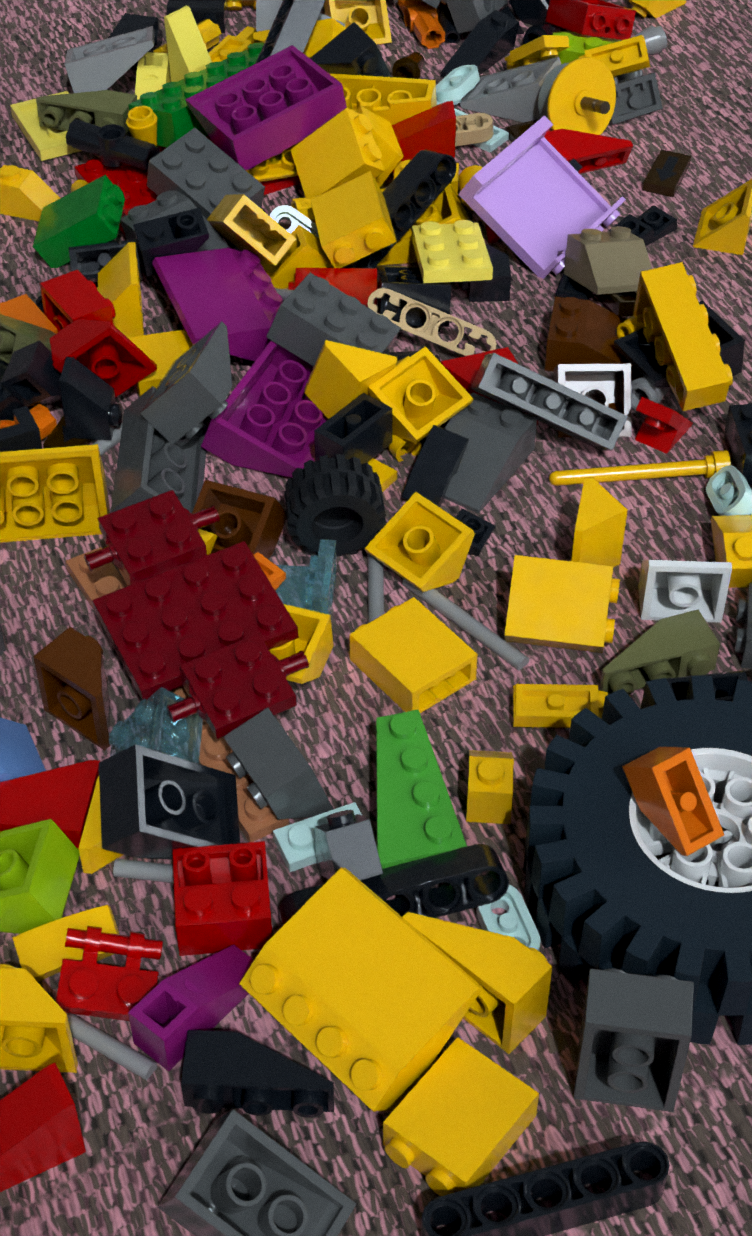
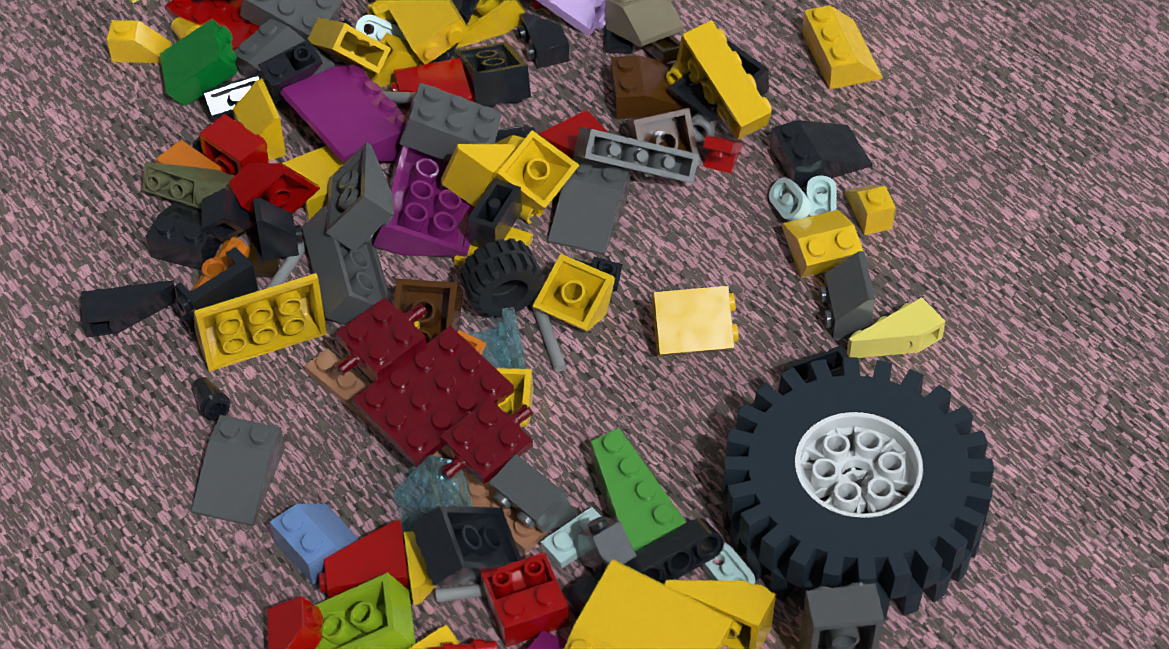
camera: 15 degrees left, 5 degrees up
(75, 685) = (361, 467): reddish brown slope -> none
(413, 656) = (596, 385): yellow brick -> none
(434, 319) = (521, 96): tan beam -> none
(436, 465) = (564, 226): black slope -> none
(451, 252) = (517, 33): light yellow plate -> none
(471, 626) = (629, 350): light grey bar -> none
(490, 787) = (684, 471): yellow slope -> none
(554, 704) = (716, 398): yellow hinge -> none
(598, 526) = (702, 254): yellow slope -> none
(669, 649) = (778, 341): olive slope -> none
(674, 797) = (827, 457): orange slope -> none
(682, 587) = (777, 287): white slope -> none
(708, 466) = (765, 180): yellow piece -> none

